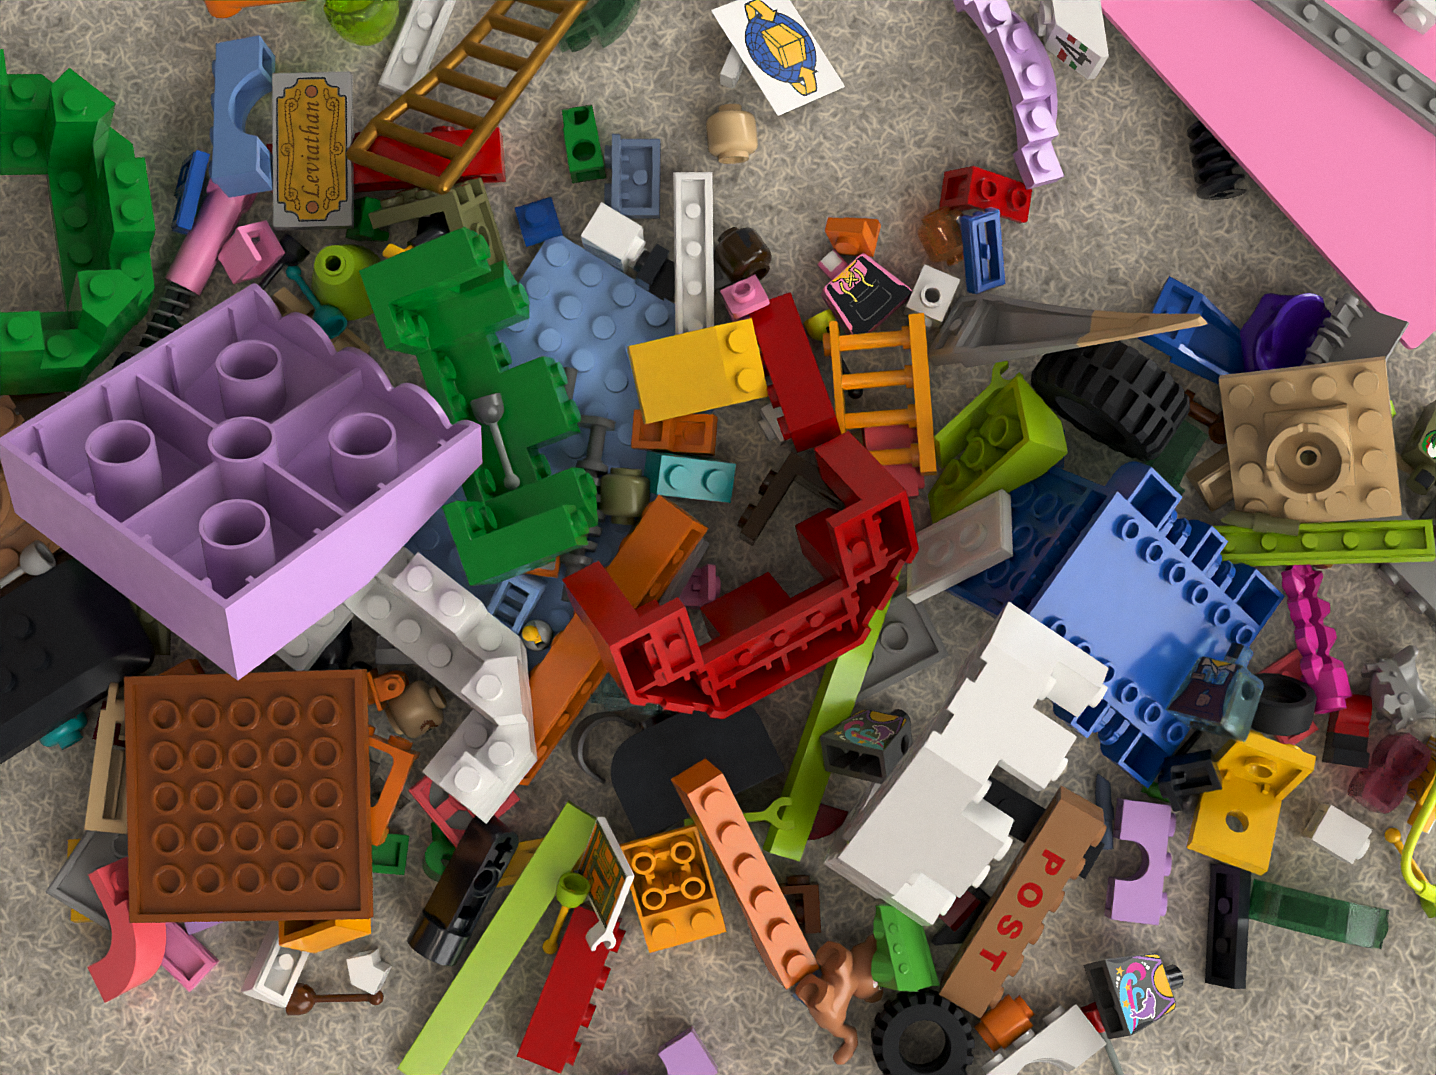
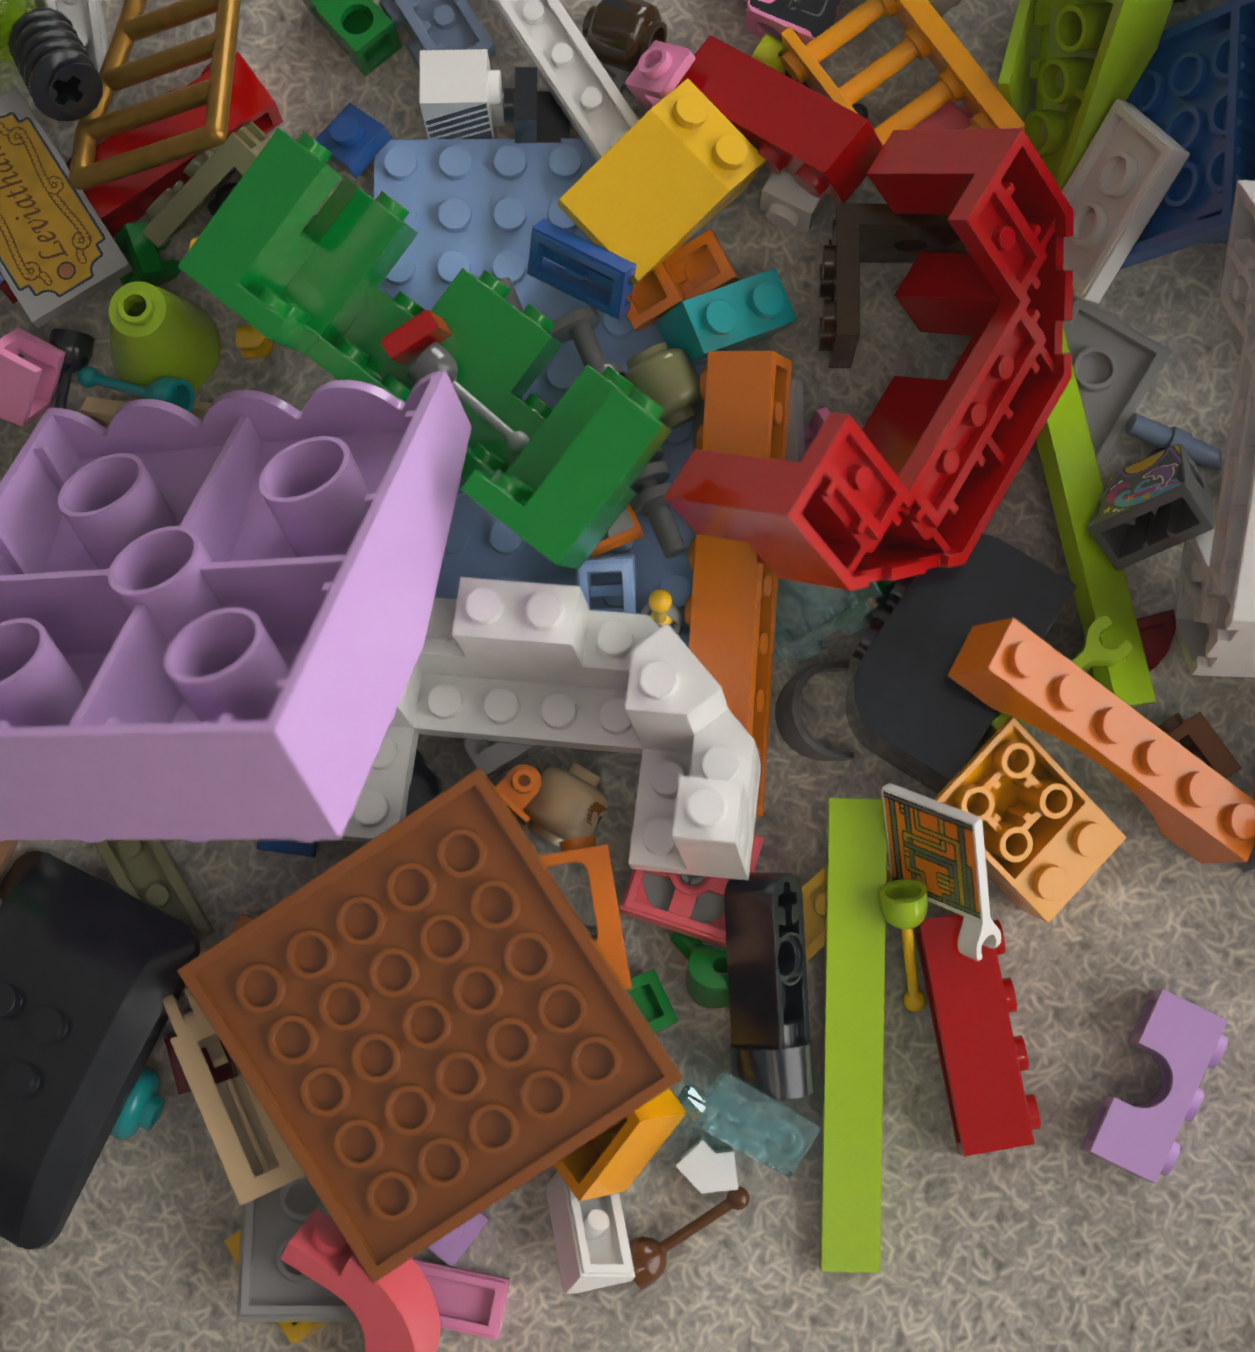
camera: 25 degrees left, 5 degrees down
(381, 72) = (55, 65): none -> black piece
(403, 961) = (750, 1122): none -> clear light blue bracket
(487, 383) = (414, 336): none -> red tile
(618, 393) = (581, 261): none -> blue tile
(913, 709) = (1165, 437): none -> sand blue piece

